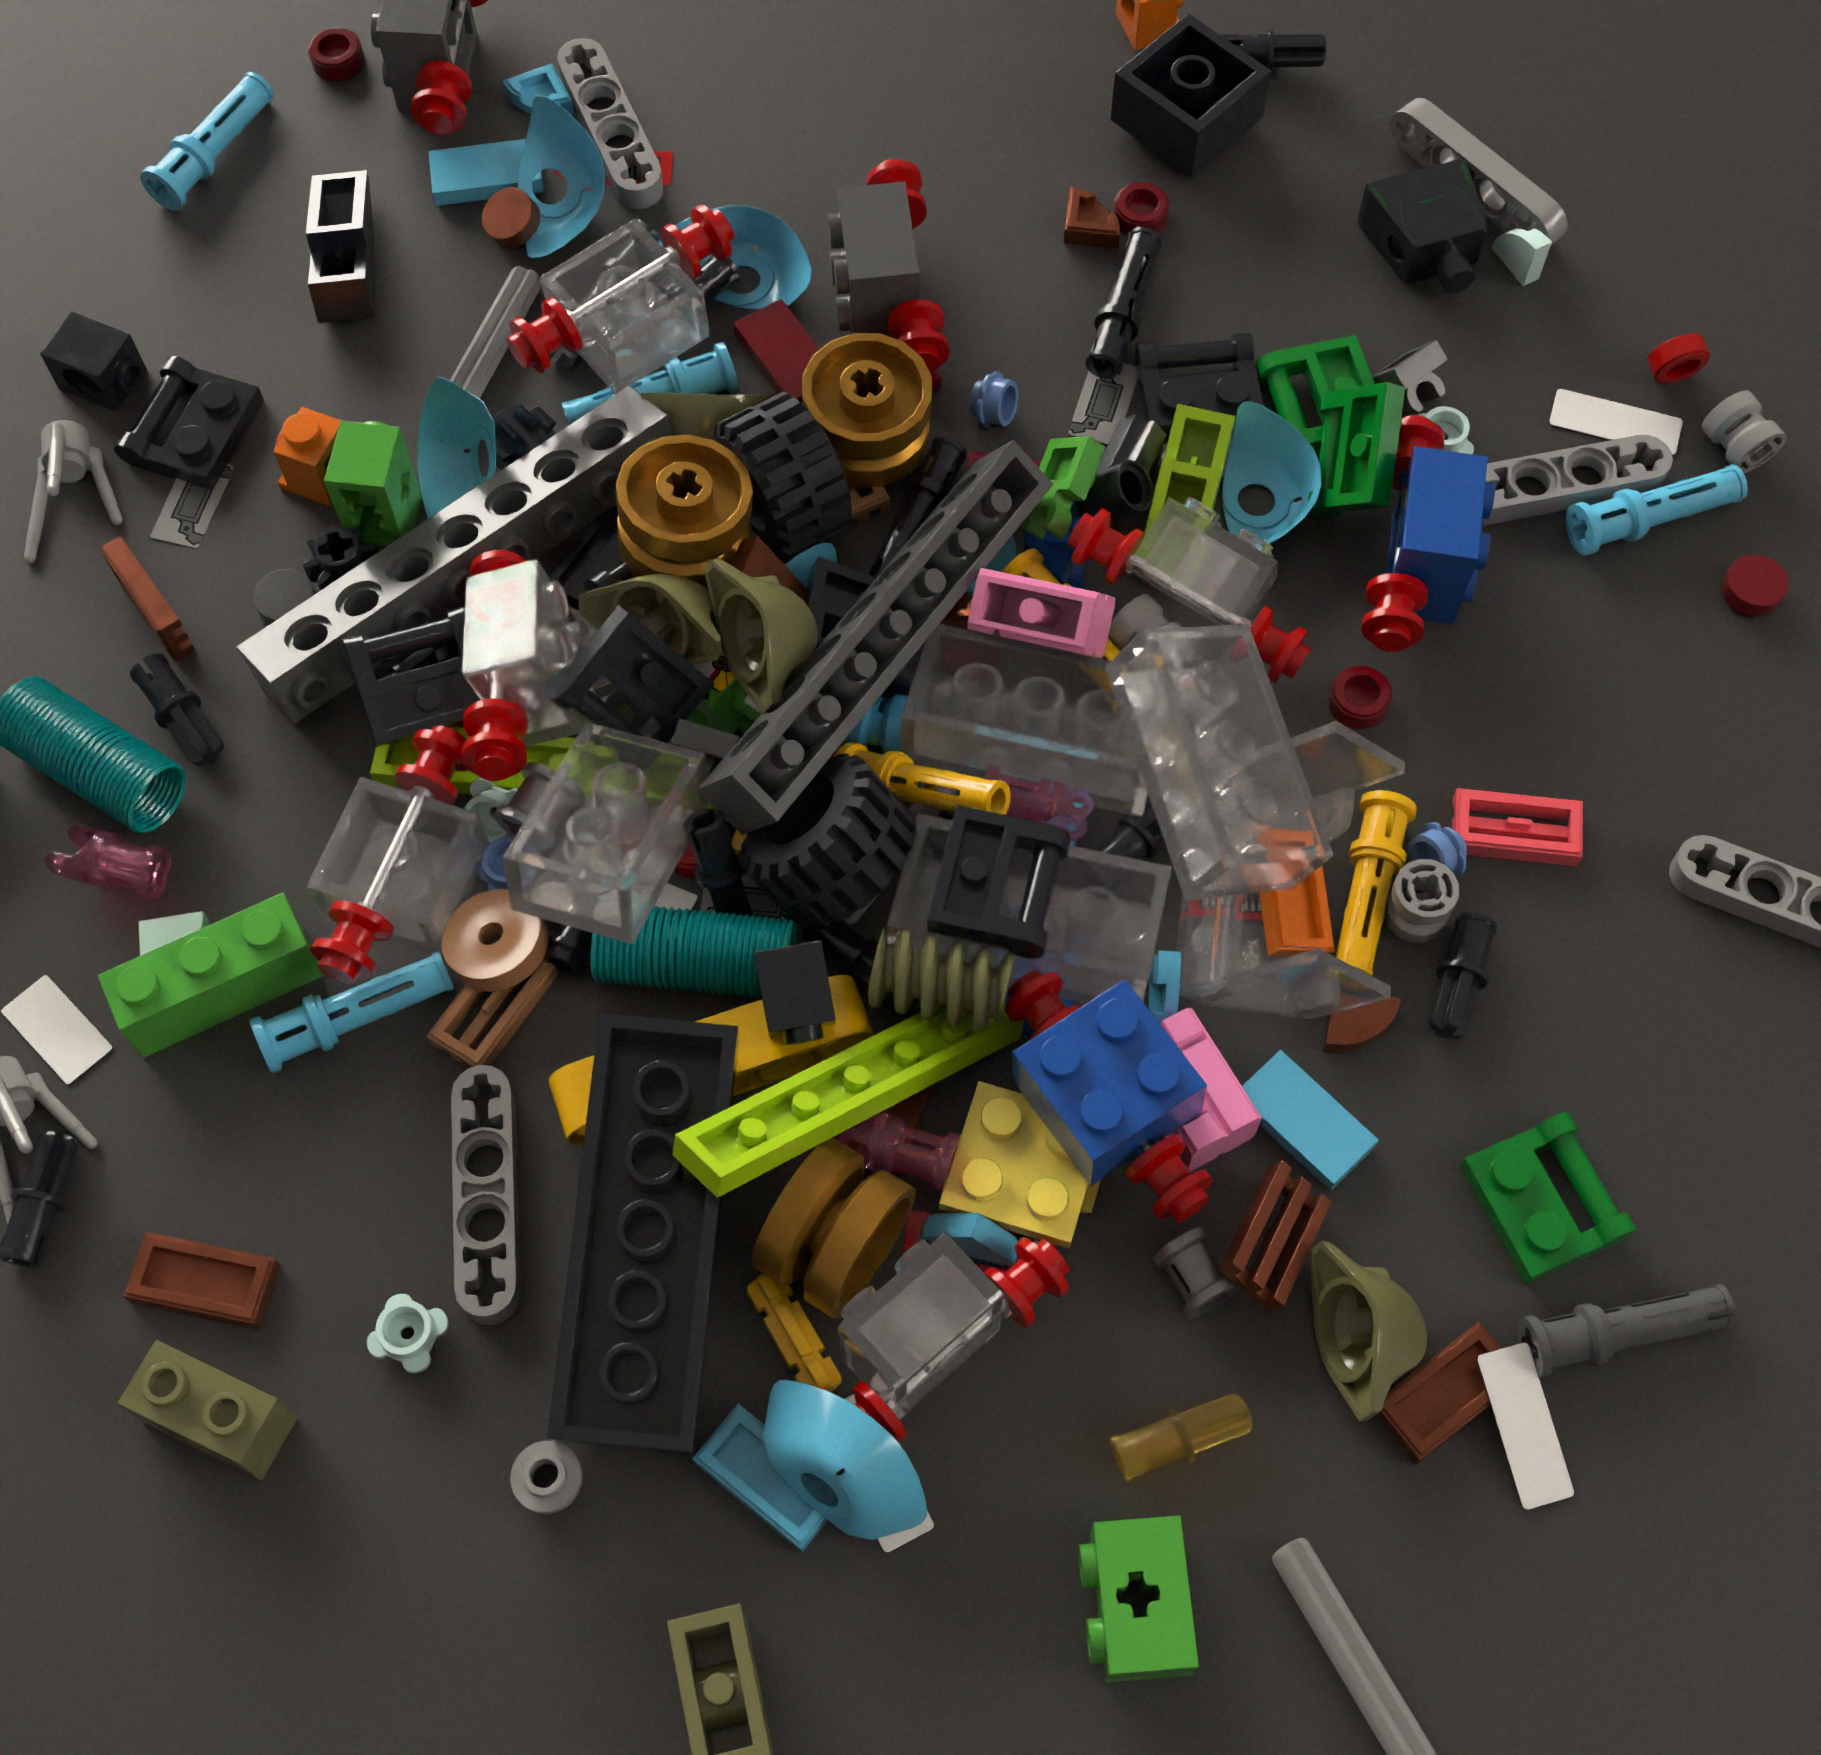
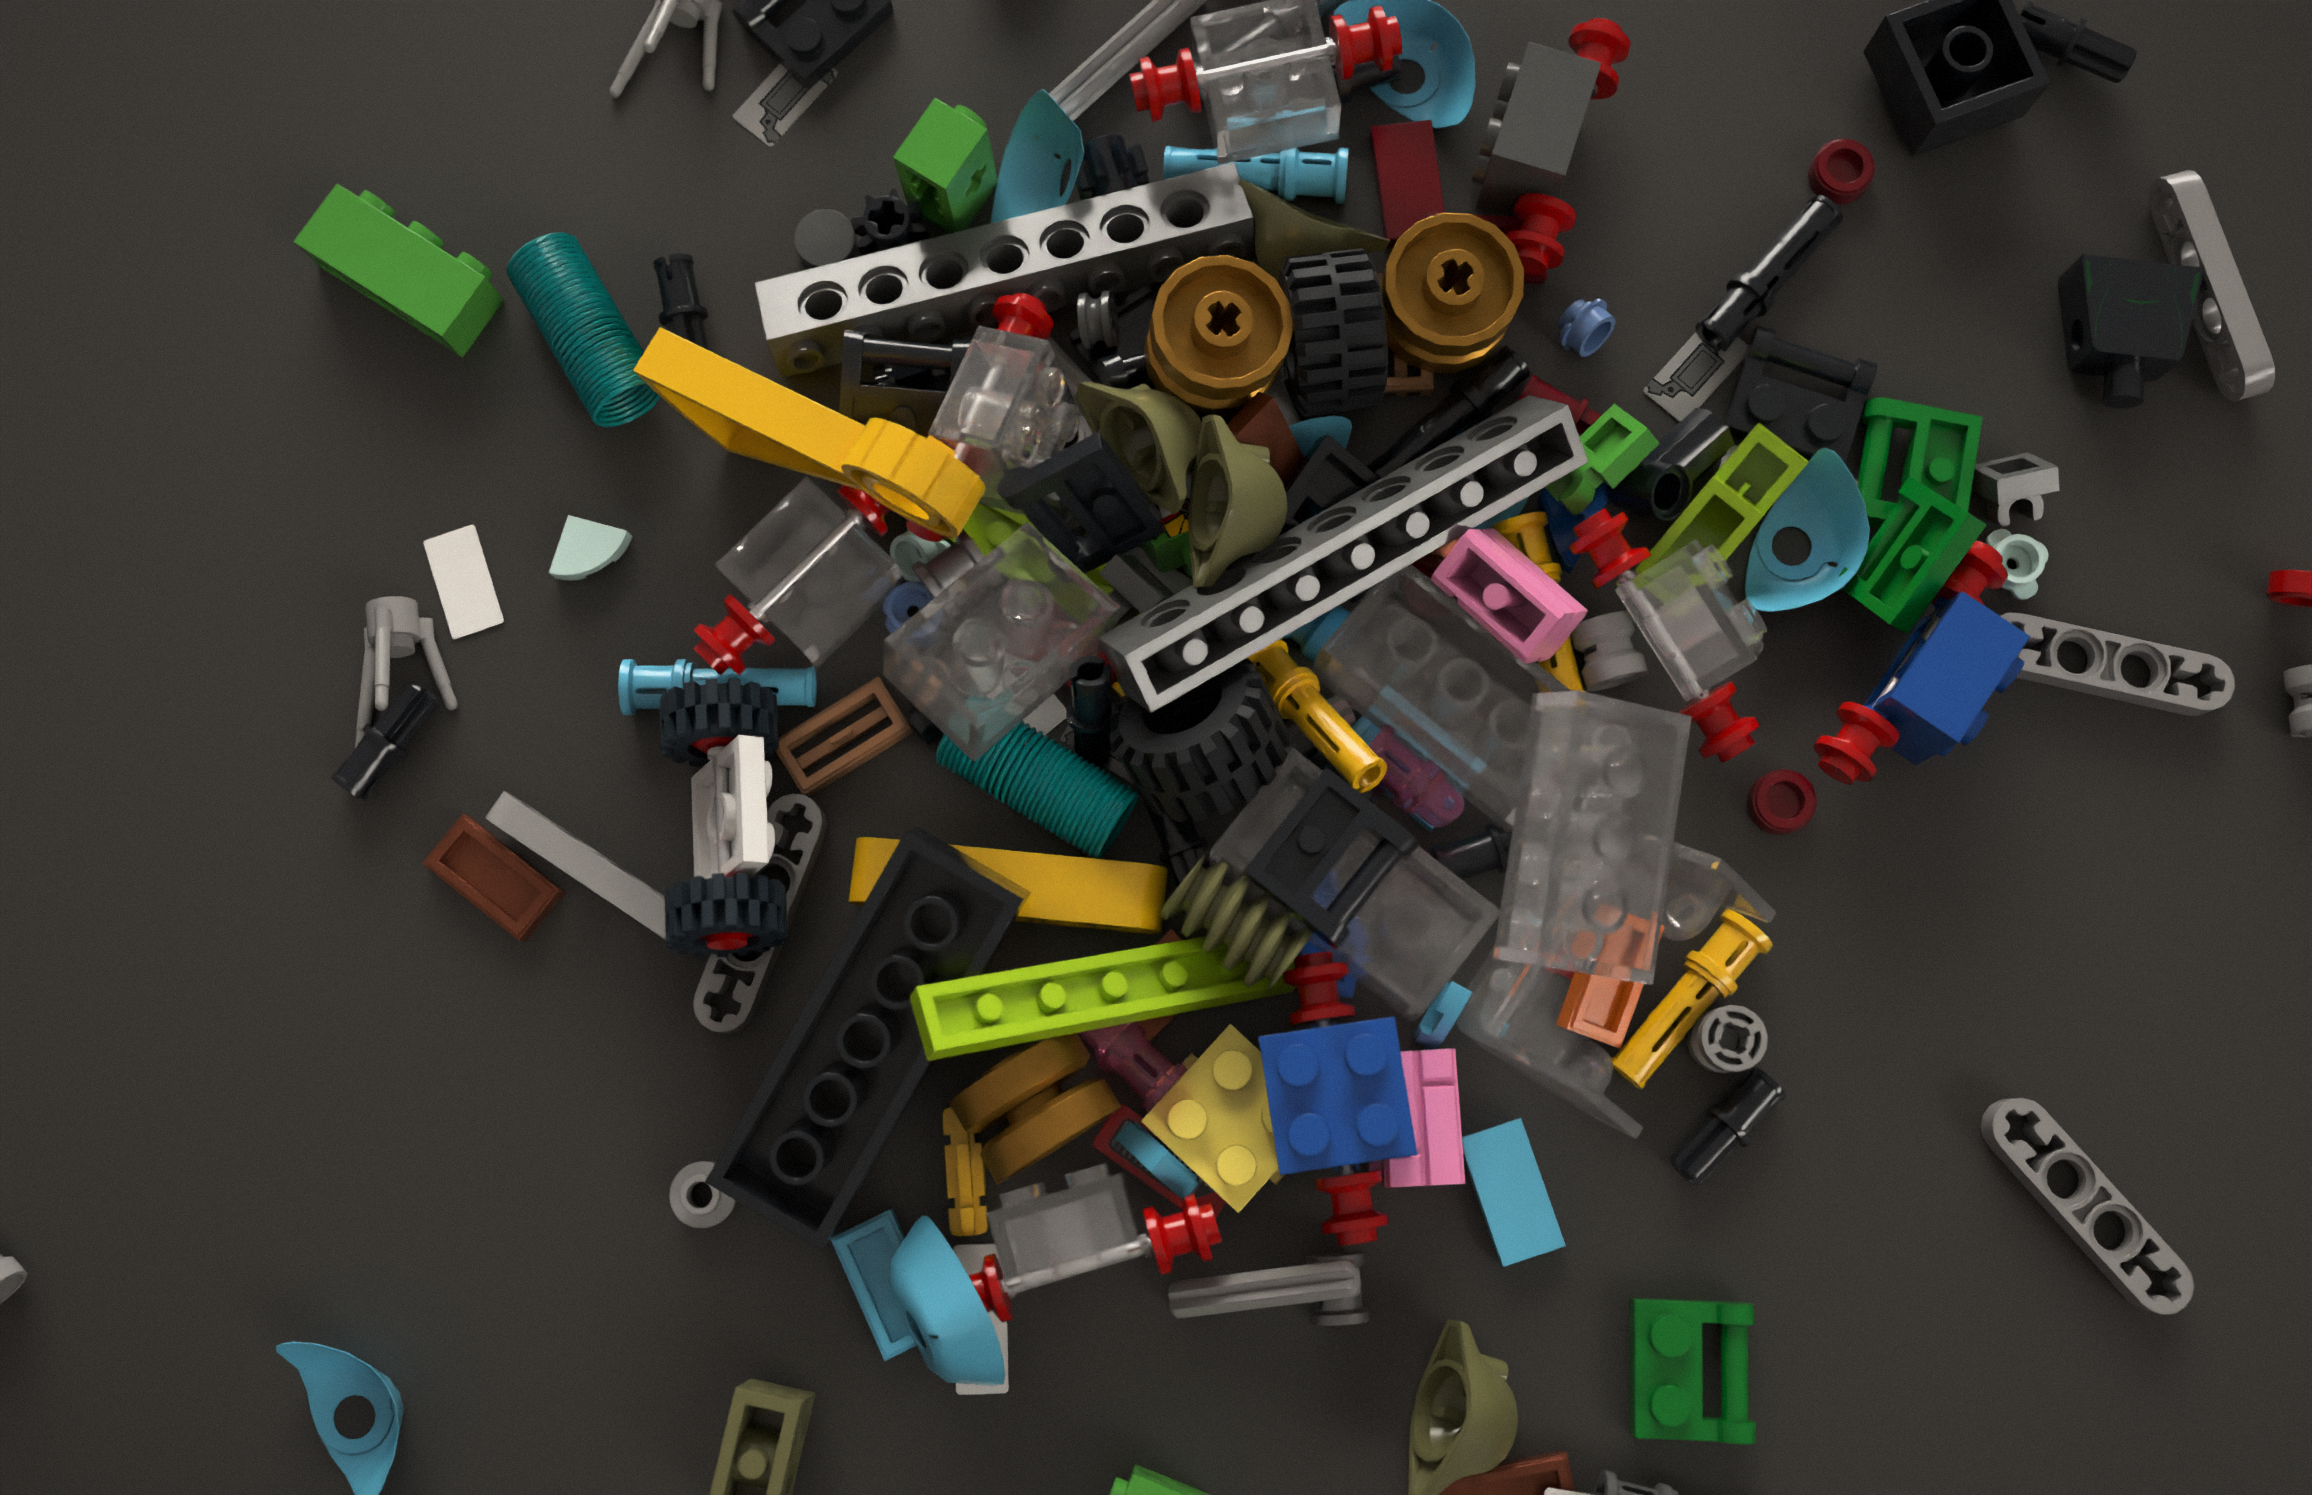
camera: 30 degrees right, 15 degrees up
(110, 861) = (570, 448): clear pink piece -> none
(147, 599) = (699, 189): copper tile -> none
(208, 1409) = (448, 1004): olive brick -> none
(210, 975) = (606, 600): bright green brick -> none
(301, 739) = (788, 430): none -> yellow piece
(302, 451) = (904, 94): orange brick -> none
(305, 1223) = (580, 861): none -> light grey beam
(398, 1315) = (624, 1009): light aqua plate -> none
(446, 1168) = (733, 733): none -> plate
(499, 964) = (837, 682): medium nougat piece -> none
(568, 553) = (1097, 319): none -> dark grey bush
(795, 991) = (1098, 875): black brick -> none
(1090, 221) = (1782, 161): copper tile -> none
(1129, 1298) = (1265, 1288): none -> light grey axle
(1181, 1435) = (1254, 1423): clear yellow axle -> none
(1313, 1211) = (1429, 1301): copper tile -> none
(1359, 1025) = (1594, 1132): copper tile -> none
(1439, 845) = (1770, 996): medium blue plate -> none
(1519, 837) = (1812, 974): coral tile -> none
(1523, 253) = (2208, 396): light aqua tile -> none
(1612, 419) = (2200, 620): white sticker -> none
(1632, 513) = (2159, 736): medium azure pin -> none
(1755, 585) = (2238, 865): dark red tile -> none

